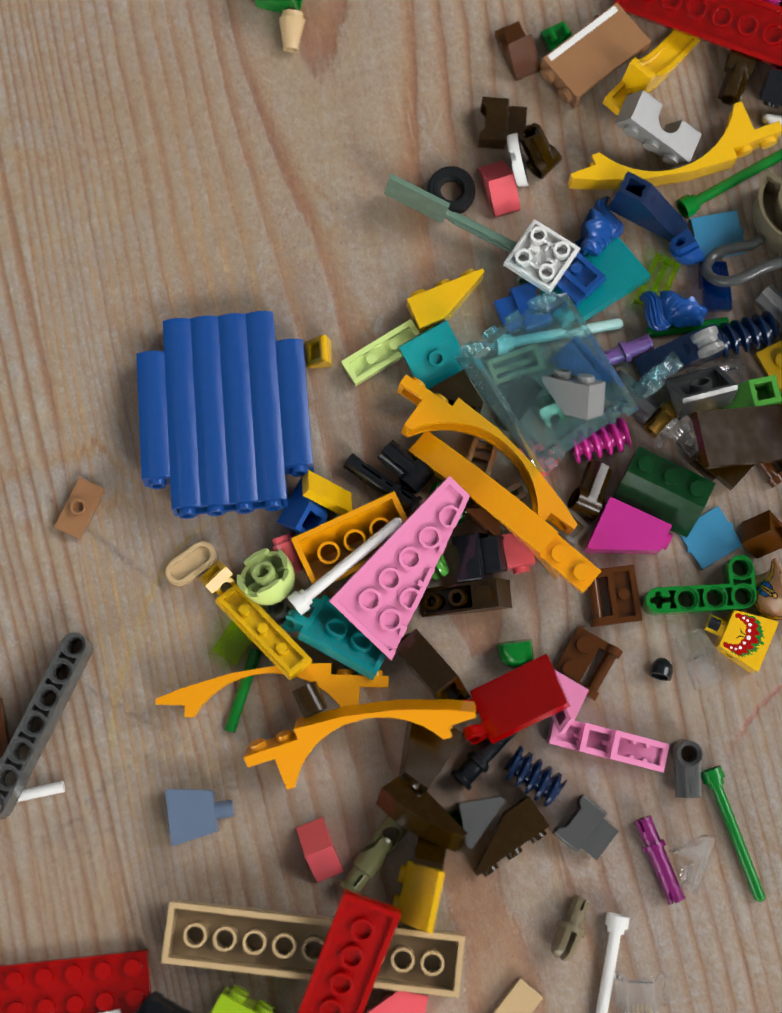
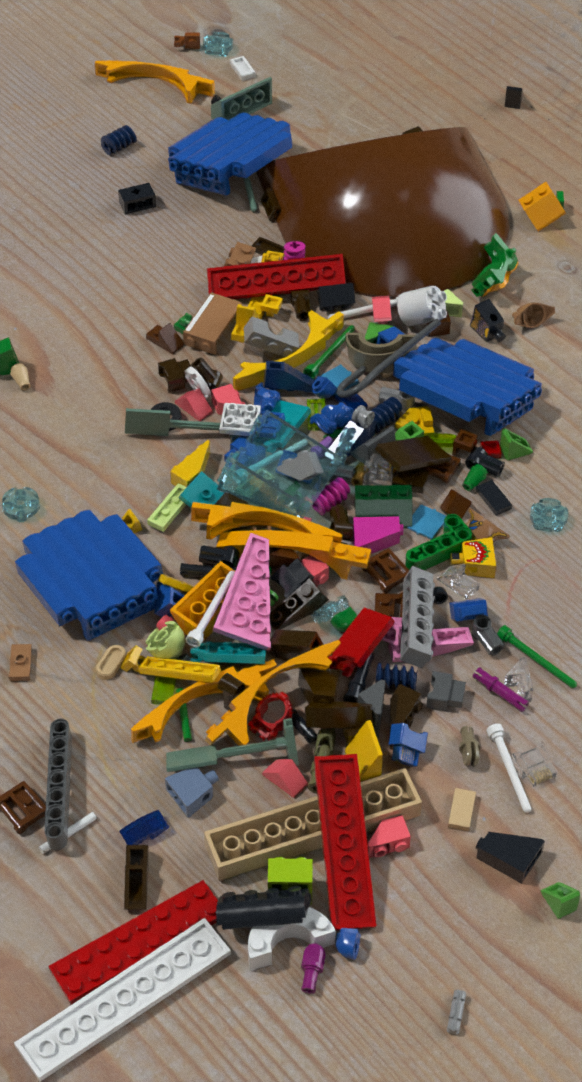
camera: 25 degrees left, 30 degrees down
(69, 906) = (136, 877): none -> dark brown slope
(112, 840) = (147, 826): none -> clear blue slope
(187, 265) = (24, 511): none -> clear light blue plate
(226, 776) = (208, 754): none -> sand green piece
(327, 761) = (269, 730): none -> red piece
(377, 778) = (300, 724): none -> black axle
(491, 891) = (407, 744): none -> blue piece
(502, 631) = (326, 611): none -> clear light blue plate
(545, 205) = (223, 395): none -> coral slope
(608, 687) = (417, 617): none -> light grey brick
(684, 722) = (468, 609): none -> blue piece
(692, 60) = (271, 305): none -> yellow tile

